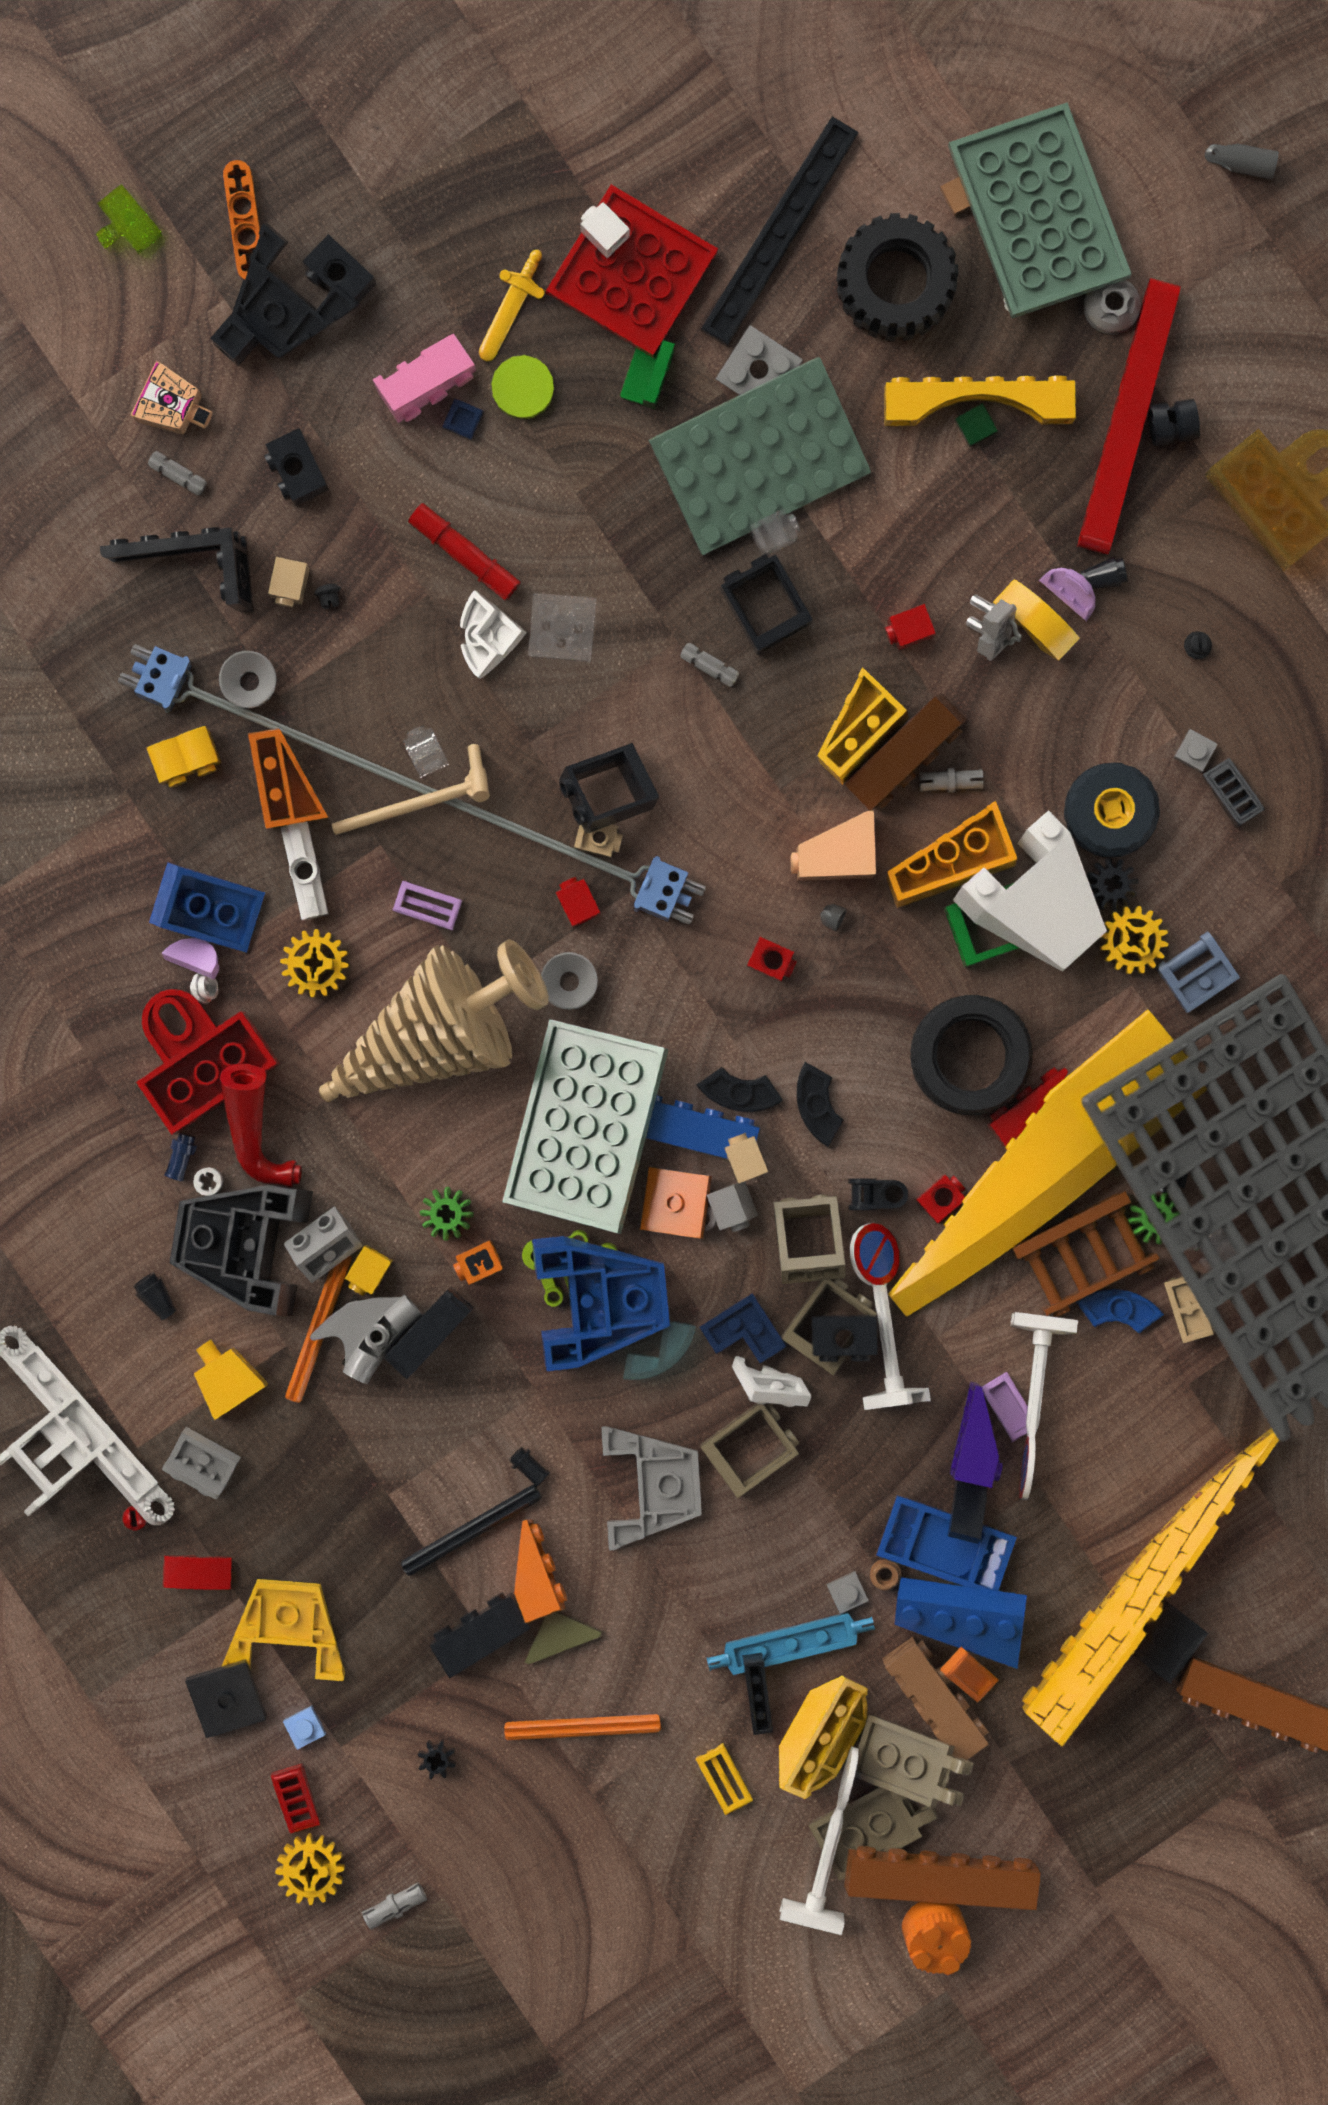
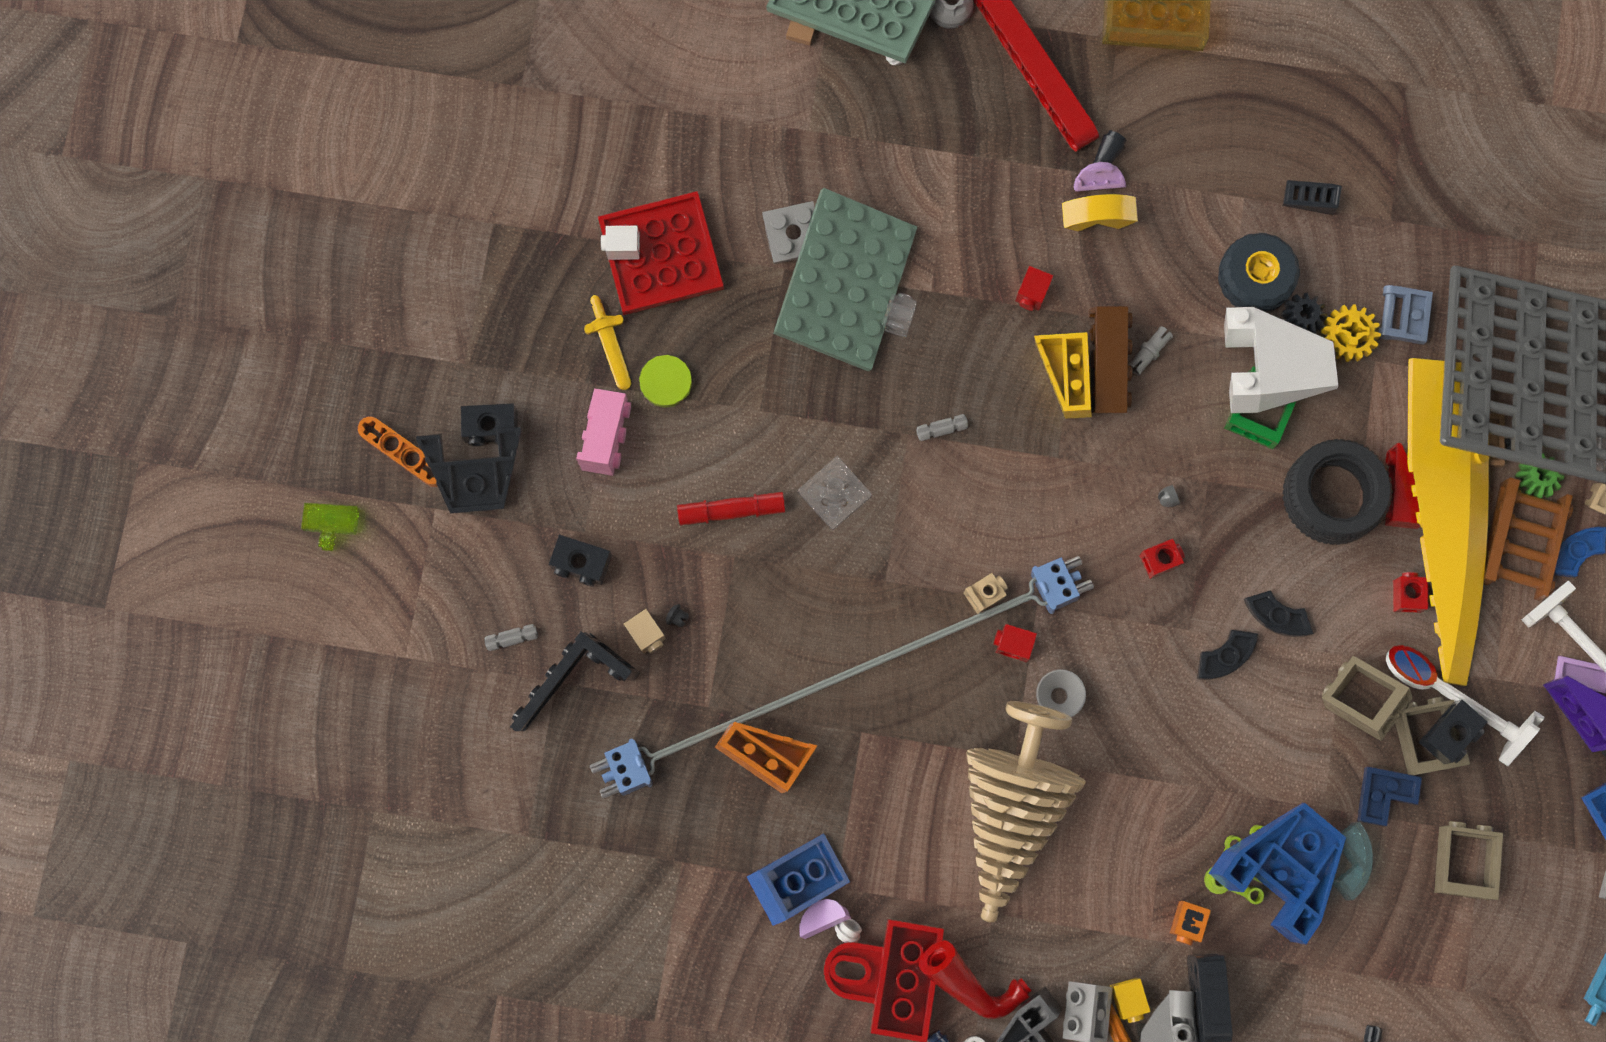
camera: 45 degrees left, 10 degrees down
(170, 402) = (464, 599): torso -> none
(184, 756) = (690, 801): yellow brick -> none
(234, 340) = (467, 523): black brick -> none
(236, 667) = (677, 700): light grey piece -> none
(301, 850) = (851, 803): white piece -> none
(314, 979) = (911, 858): yellow gear -> none
(425, 751) = (830, 647): clear brick -> none
(438, 1220) = (1138, 923): bright green gear -> none
(452, 913) = (907, 749): lavender tile -> none
(463, 419) = (649, 434): dark blue tile -> none
(474, 786) = (883, 636): tan bar -> none
(488, 634) = (795, 542): white brick -> none
(528, 1466) = (1353, 1017): black pin -> none
(585, 1126) = (1165, 771): plate -> none
(634, 775) = (970, 534): black window -> none
(647, 376) = (731, 302): green panel -> none
(665, 1485) = (1445, 939): light grey wing -> none
(675, 1203) = (1264, 760): orange plate -> none
(696, 1130) = (1226, 706): blue brick -> none
(730, 1208) = (1298, 728): light grey brick -> none
(745, 1158) = (1281, 688): tan brick -> none
(771, 1385) = (1439, 811): white wing -> none
(779, 231) = (721, 150): black tile -> none
(782, 631) = (944, 338): black window -> none
(839, 852) = (1135, 453): light nougat slope -> none
(874, 1194) = (1369, 634): black piece -> none
(908, 237) = (812, 74): black tyre -> none
(954, 858) = (1204, 387): light orange wedge -> none
(975, 425) = (946, 143): dark green tile -> none
(995, 626) = (1084, 237): light grey piece -> none
(1045, 401) = (972, 91): yellow arch -> none
(1184, 426) = (1056, 29): black wheel -> none
(1195, 750) = (1264, 195): light grey plate -> none
(1197, 645) = (1201, 137): black piece -> none

